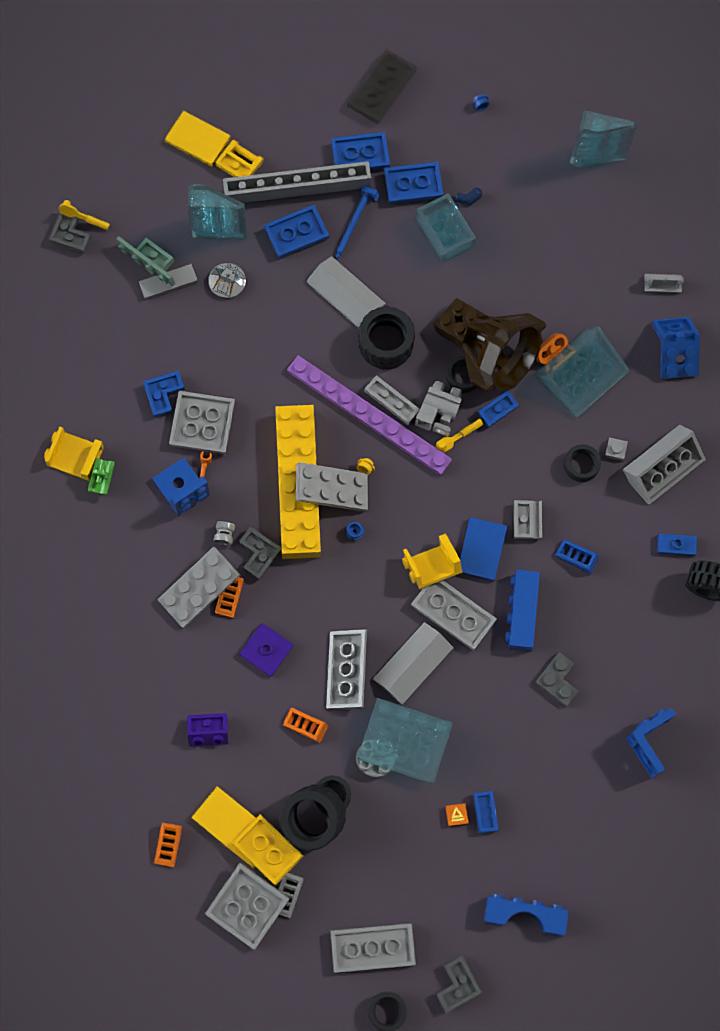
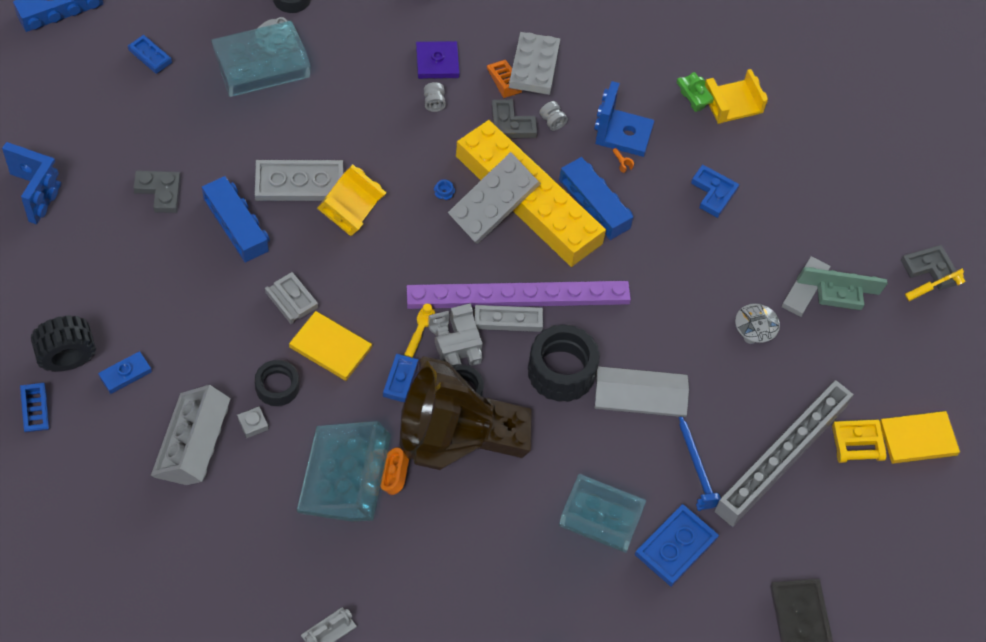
camera: 140 degrees right, 15 degrees down
(202, 422) = (657, 188): light grey plate -> none
(215, 214) = (826, 343): clear light blue slope -> none
(253, 444) = (596, 197): none -> blue brick
(296, 231) = (740, 411): blue plate -> none
(300, 610) = (434, 97): none -> light grey wheel
(320, 731) = (344, 30): orange slope -> none
(346, 669) = (357, 82): light grey slope -> none
(361, 149) = (756, 537): blue plate -> none
(365, 466) = (481, 246): yellow plate -> none
(413, 663) = (303, 124): light grey slope -> none
(456, 814) = (174, 40): orange tile -> none
(470, 198) = (606, 574): dark blue arm -> none
(482, 548) = (315, 249): blue tile -> none
(525, 467) = (330, 345): none -> yellow tile
(580, 550) = (210, 306): blue slope -> none
(678, 338) = (259, 556): blue bracket -> none

